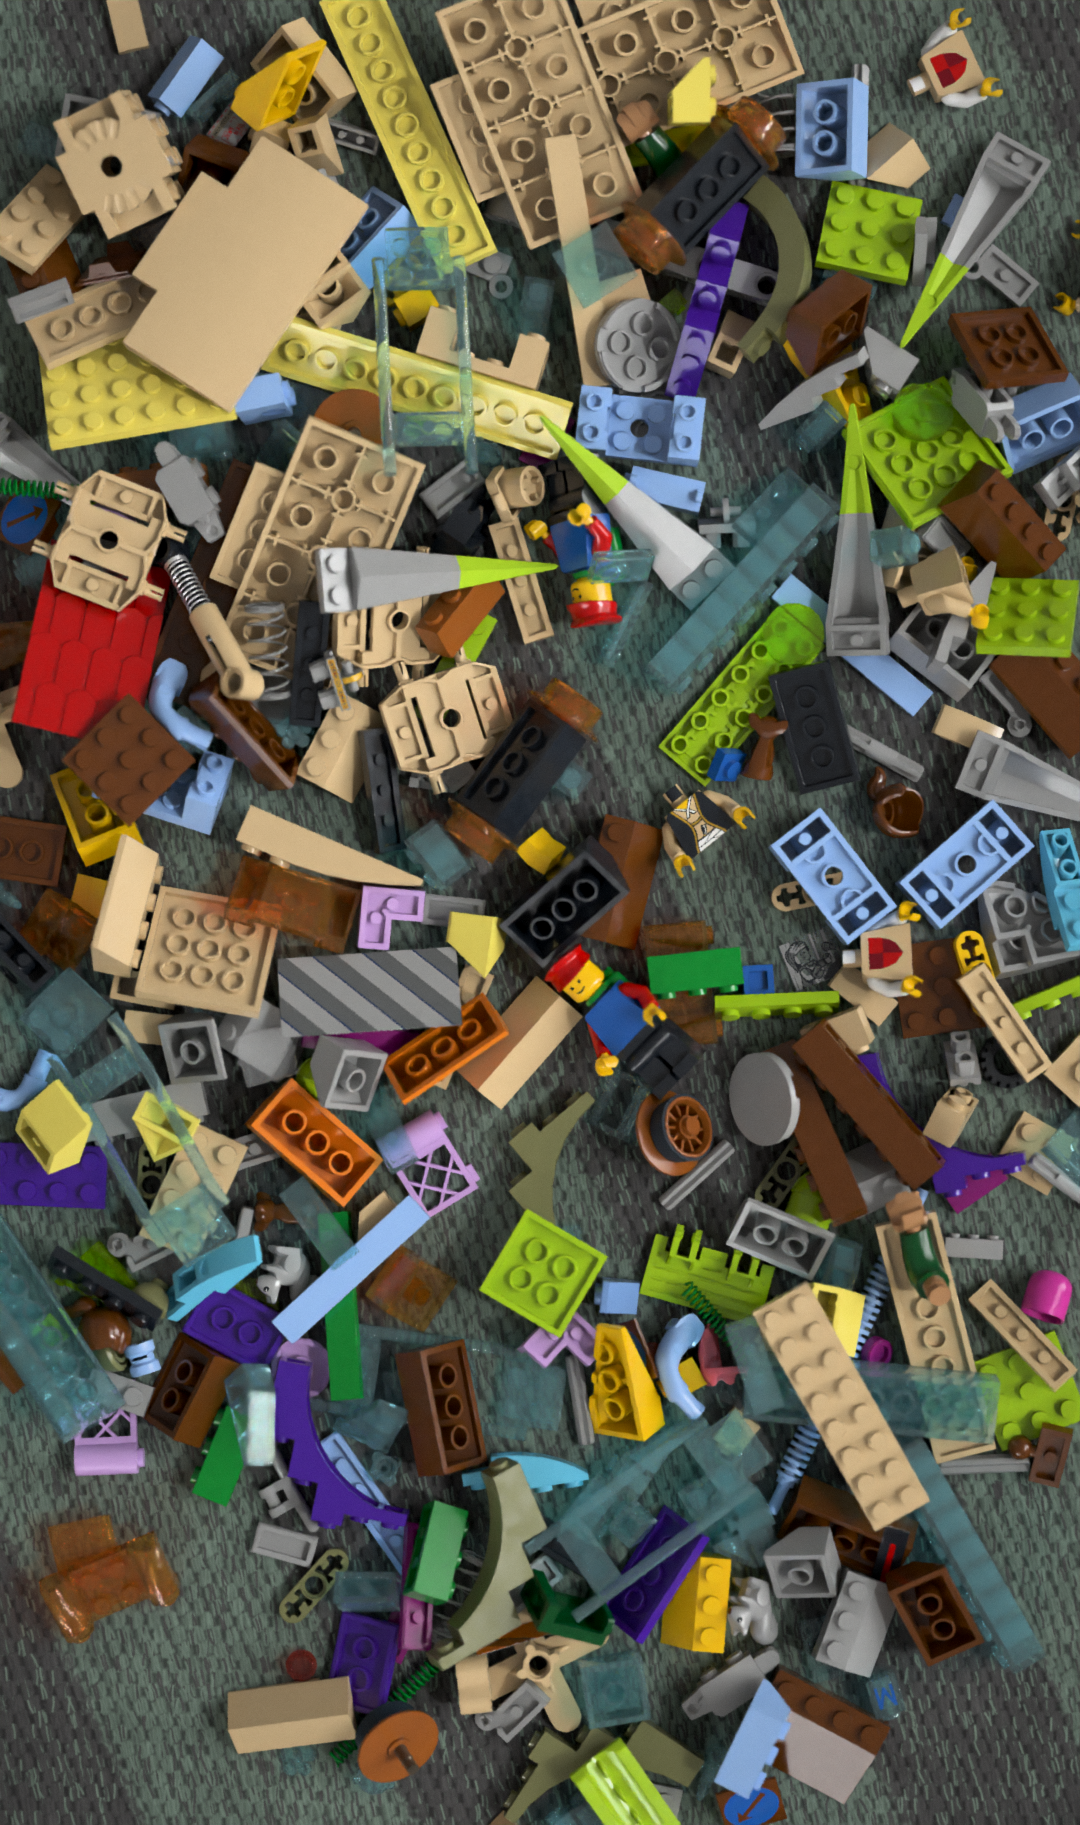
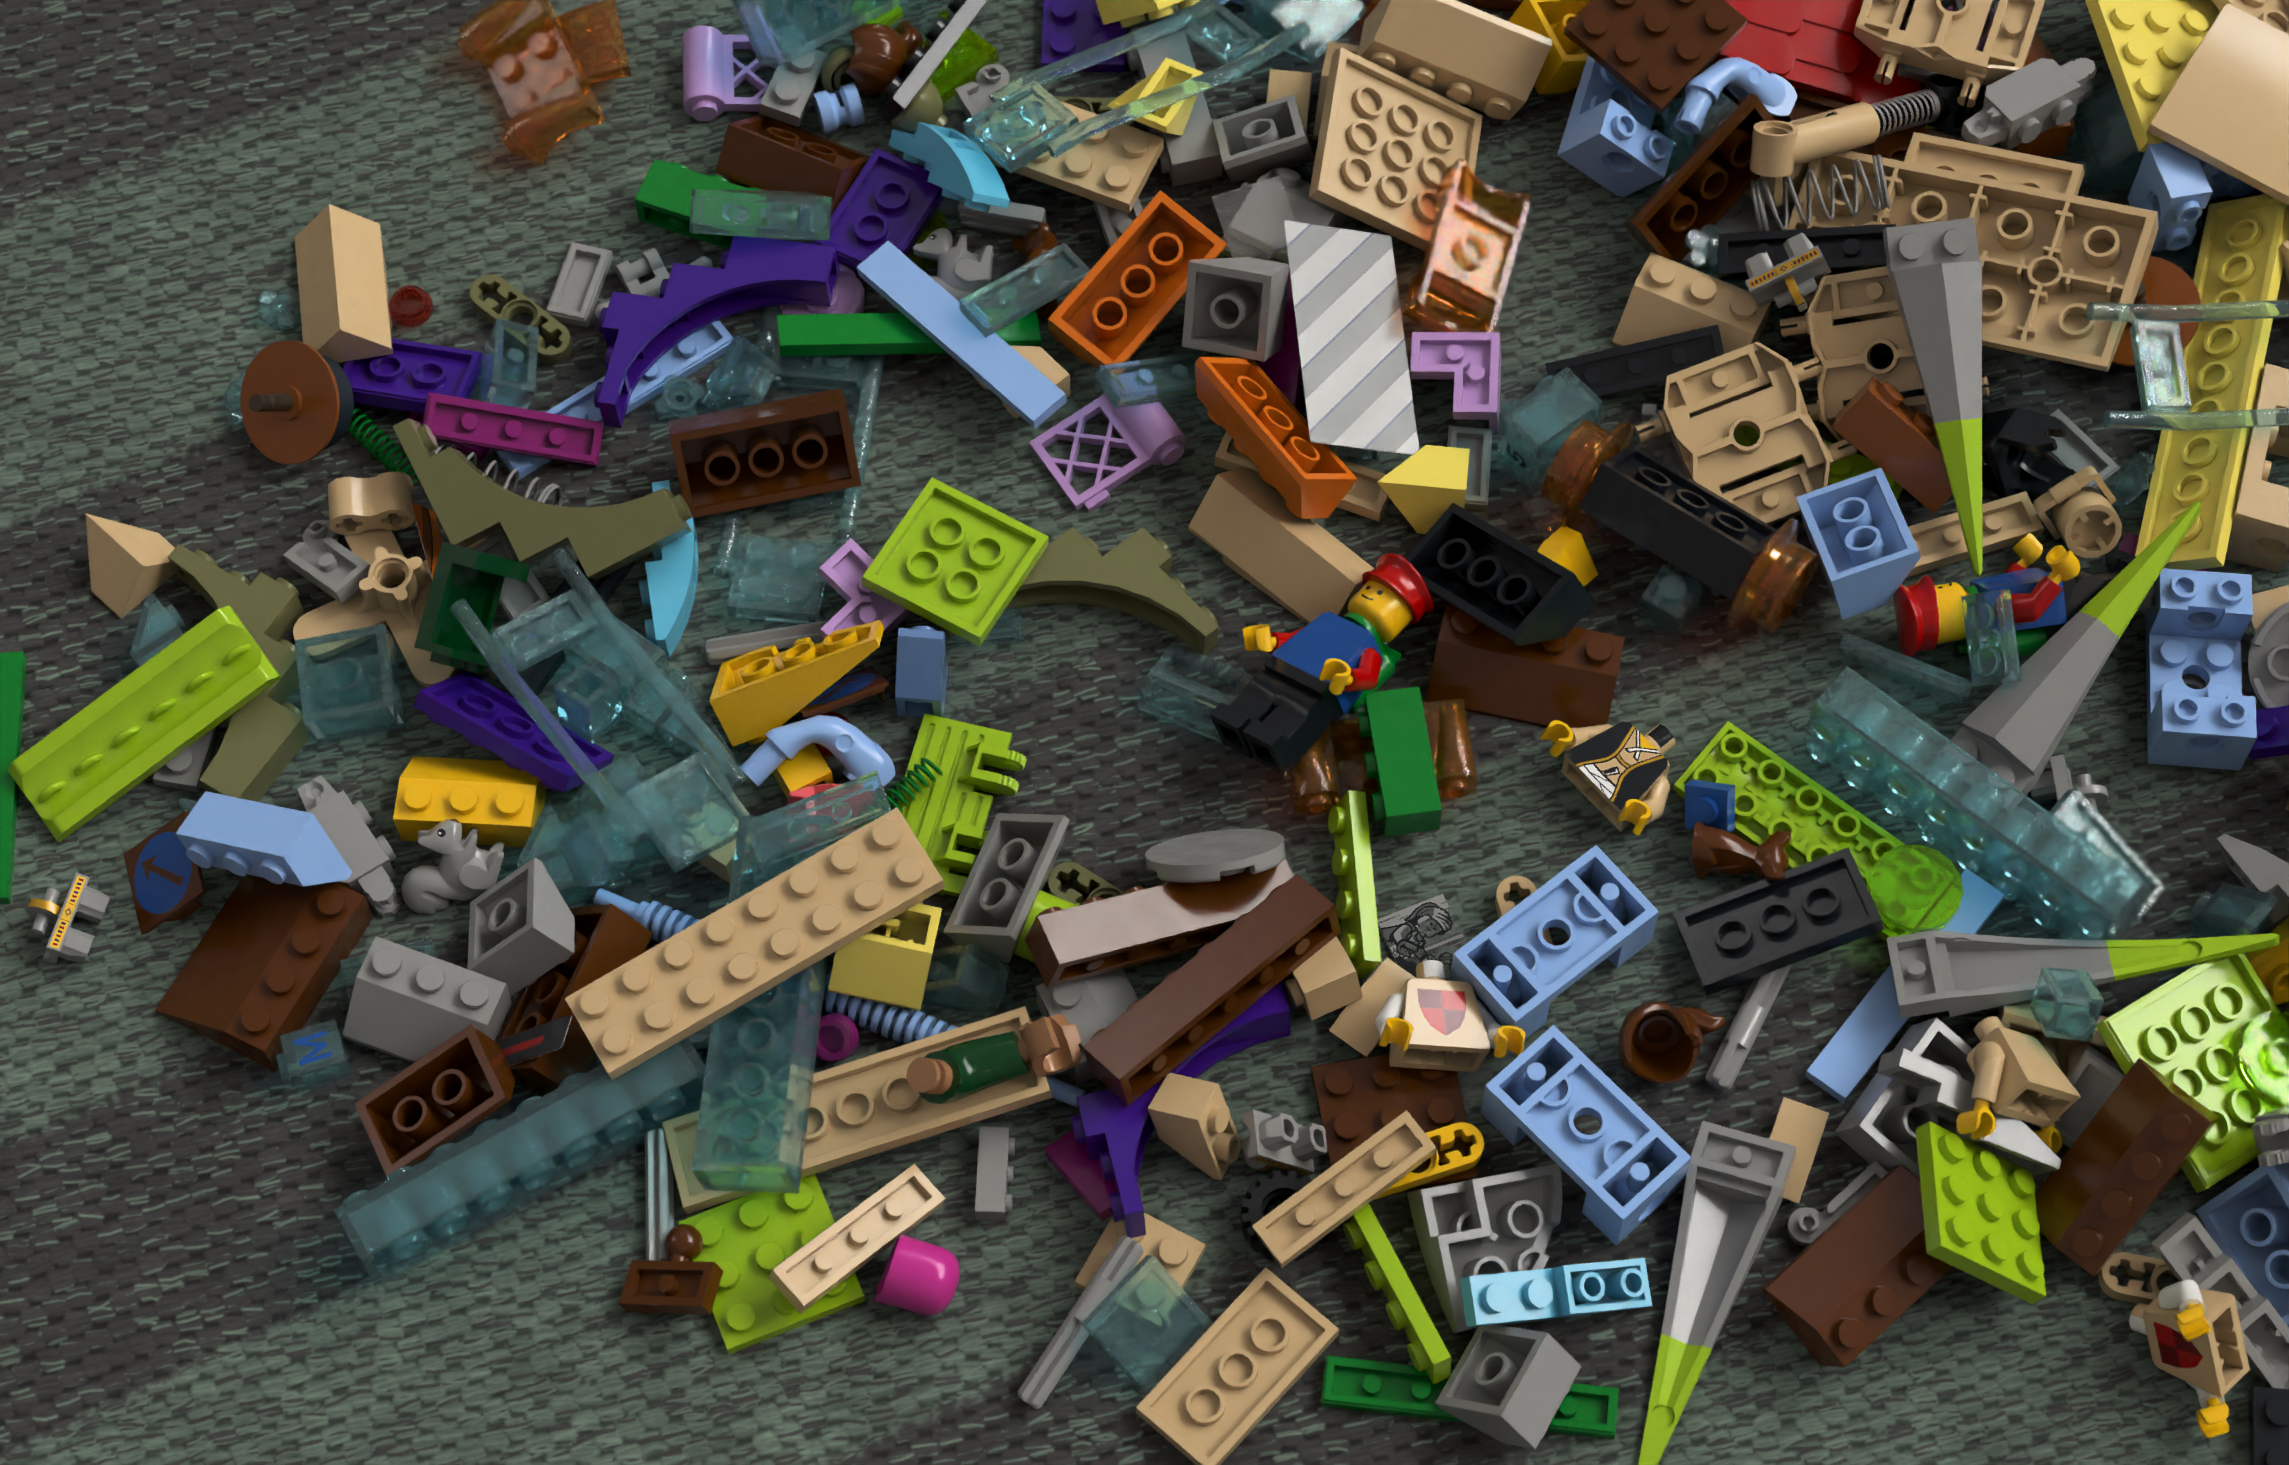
camera: 90 degrees right, 25 degrees down
(303, 848) = (1545, 272): tan slope -> none
(411, 1288) = (931, 422): clear orange slope -> none
(436, 1553) = (558, 447): green brick -> none
(538, 648) = (1859, 540): none -> light blue slope
(669, 490) = (2108, 721): light blue brick -> none
(674, 1132) = (1159, 735): dark orange piece -> none
(693, 1178) = (1099, 788): light grey axle -> none
(758, 979) = (1393, 859): blue plate -> none

